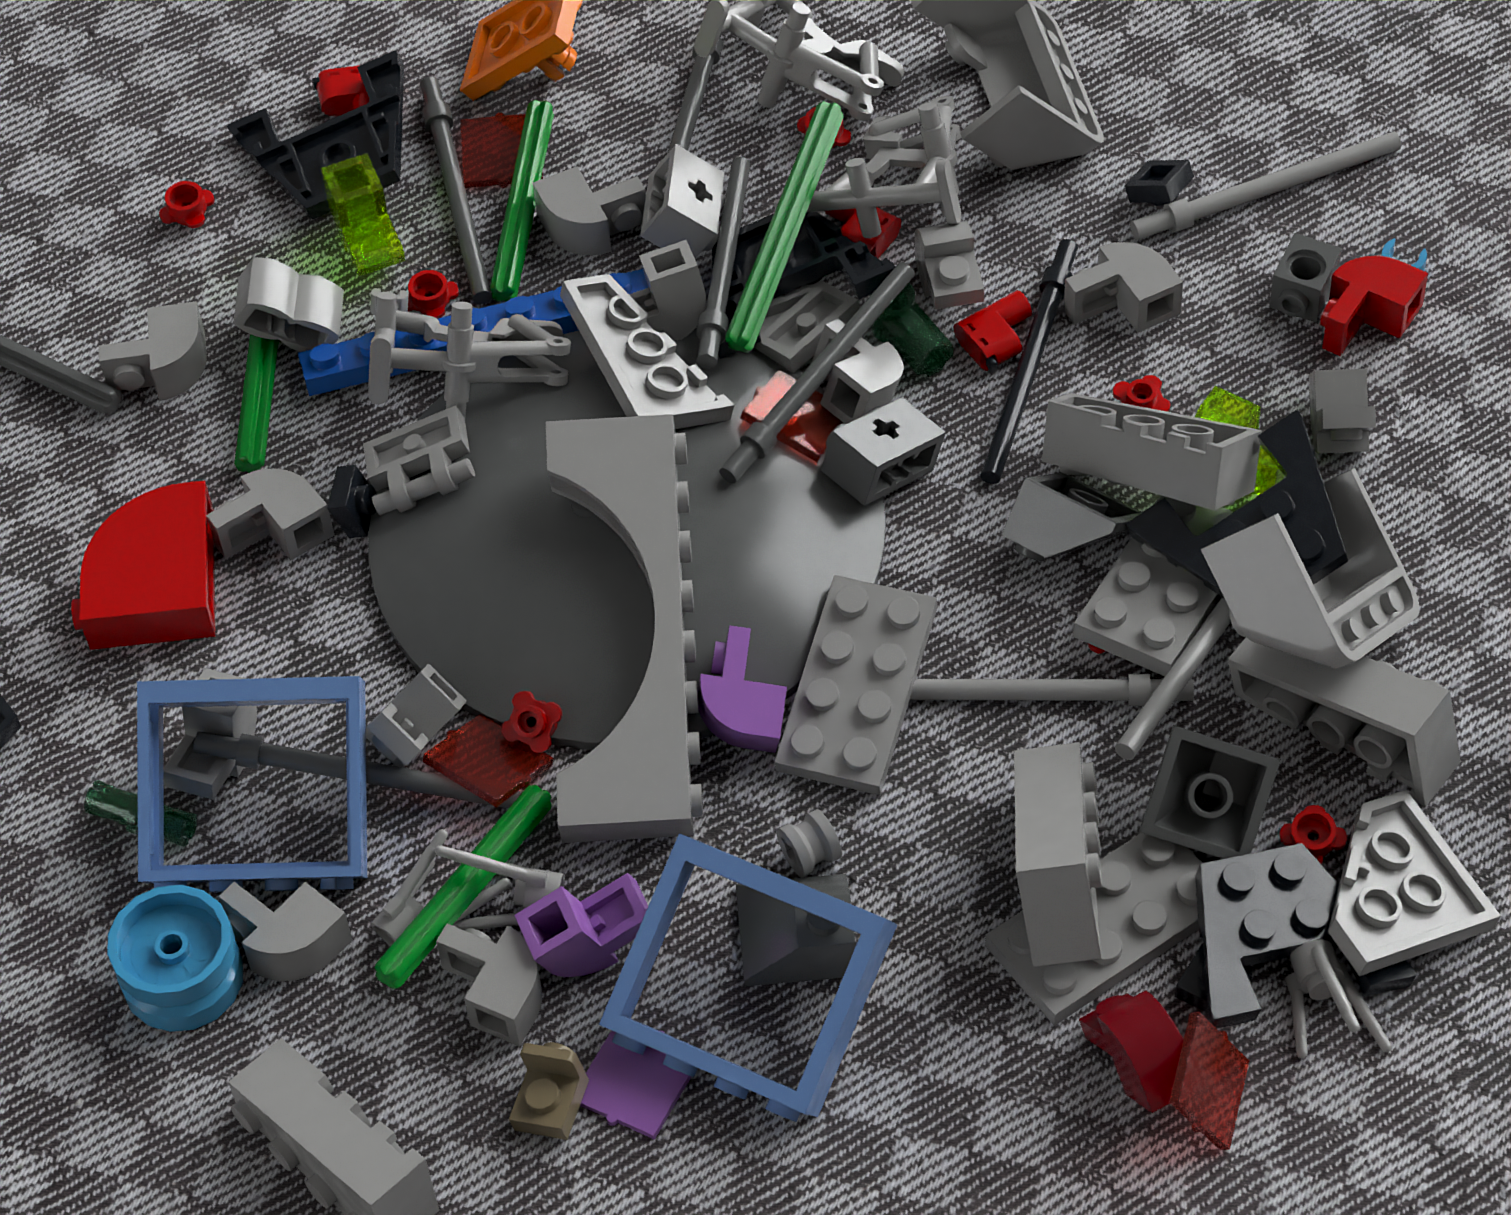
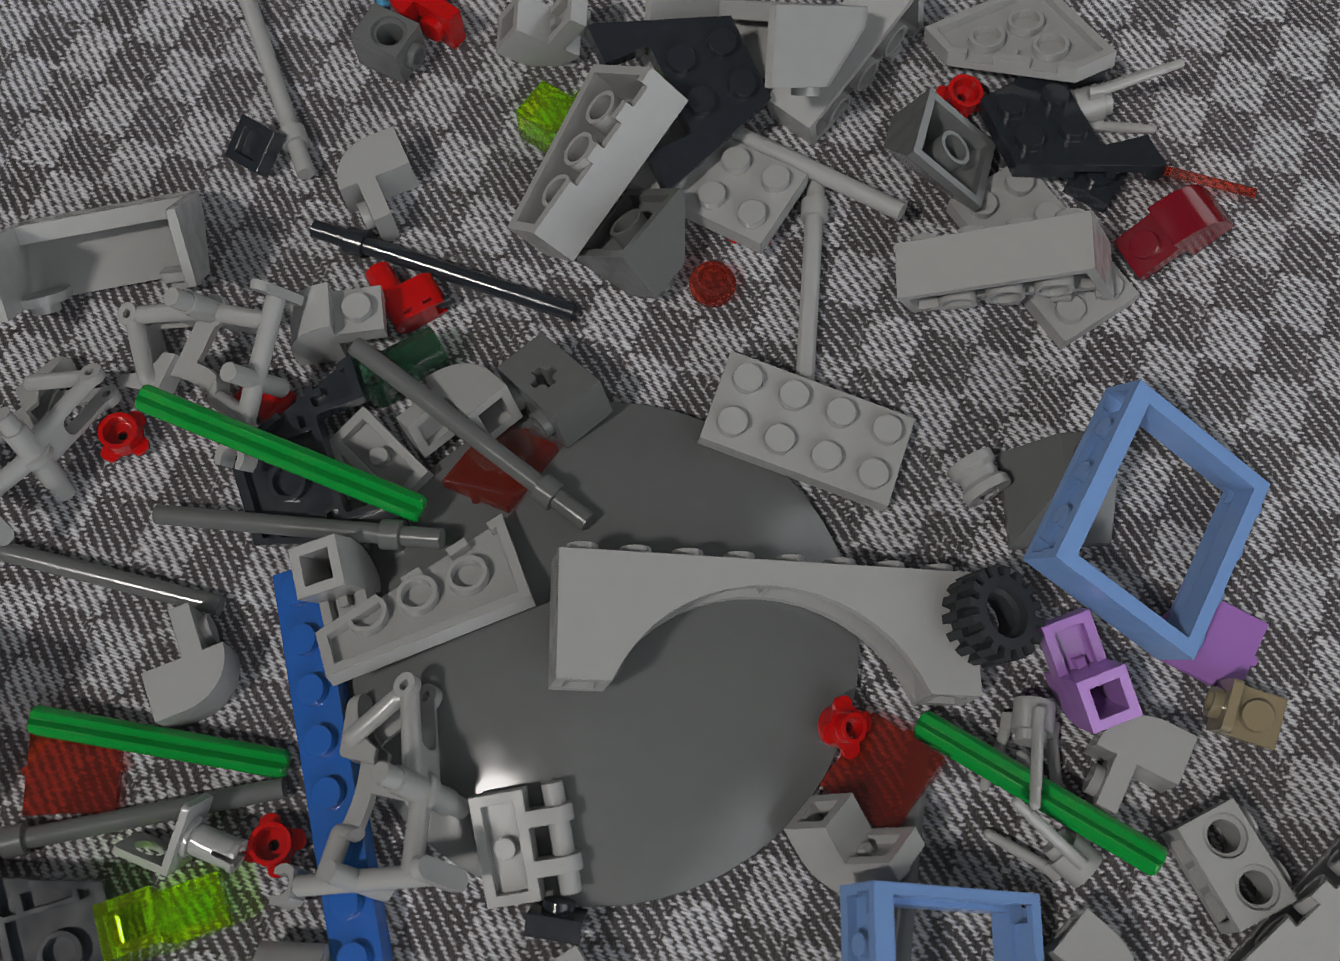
camera: 90 degrees left, 15 degrees up
(380, 1050) = (1217, 874): none -> light grey brick
(429, 224) = (189, 839): none -> light grey bracket
(602, 814) = (1013, 610): none -> black tyre
(683, 202) = (213, 565): light grey brick -> none
(737, 709) = (840, 525): medium lavender brick -> none
(1033, 596) = (712, 284): none -> clear red plate
(1146, 388) = (506, 194): red plate -> none

